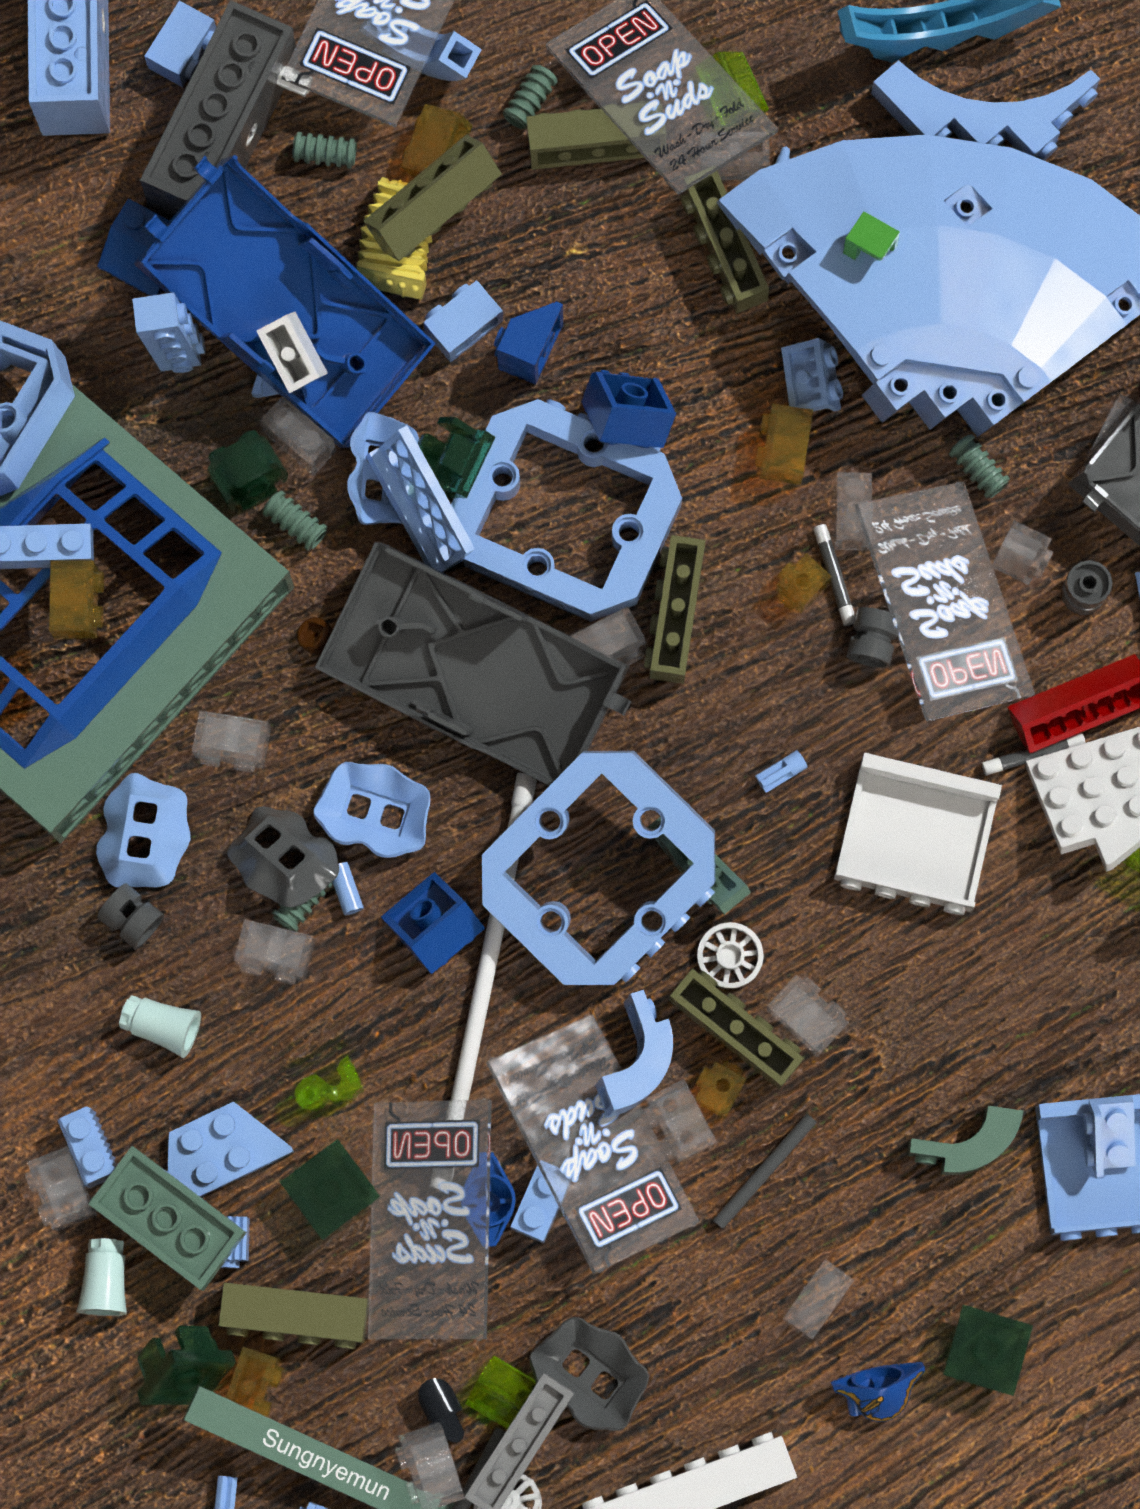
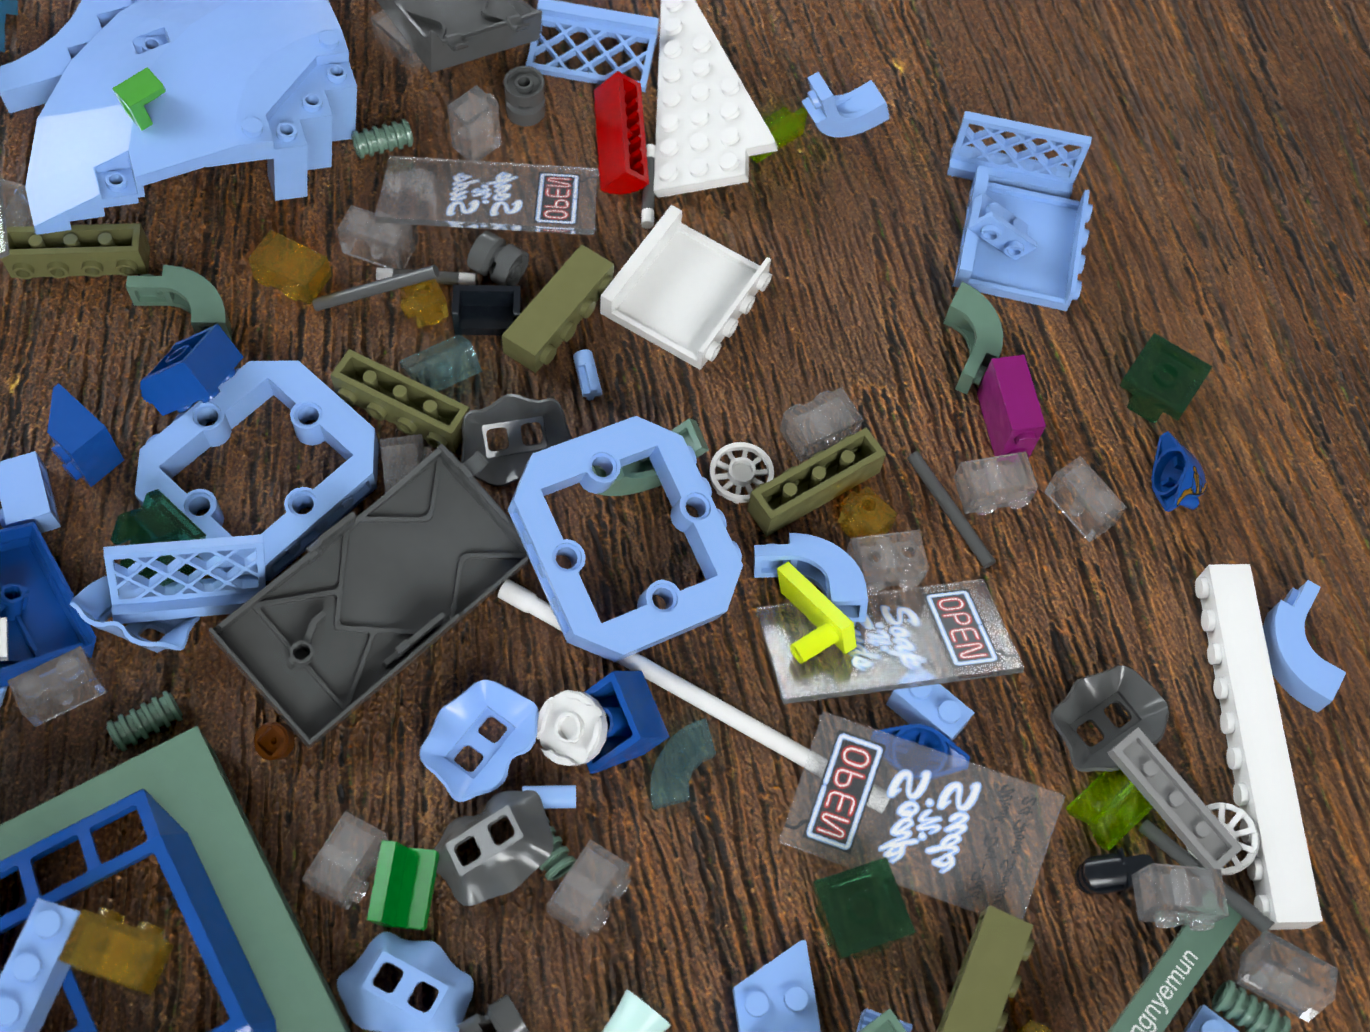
camera: 80 degrees left, 15 degrees down
(225, 794) = (403, 886): none -> green panel
(246, 471) = (67, 746): clear green brick -> none
(314, 1092) = (751, 895): clear neon green leg -> none
(410, 885) = (572, 728): none -> white tile
(416, 990) = (677, 763): none -> clear light blue tile
(576, 1087) = (831, 623): none -> neon yellow piece
(666, 740) = (511, 413): none -> dark grey piece
(715, 386) = (183, 290): none -> sand green arch
(738, 628) = (443, 363): none -> clear light blue panel
(790, 535) = (376, 287): none -> dark grey bar
(804, 1207) = (995, 483): none -> clear brick
(811, 649) = (485, 309): none -> black panel
(812, 375) = (233, 232): light blue bracket -> none
(839, 717) = (558, 309): none -> olive brick
(885, 1198) = (1010, 406): none -> magenta brick

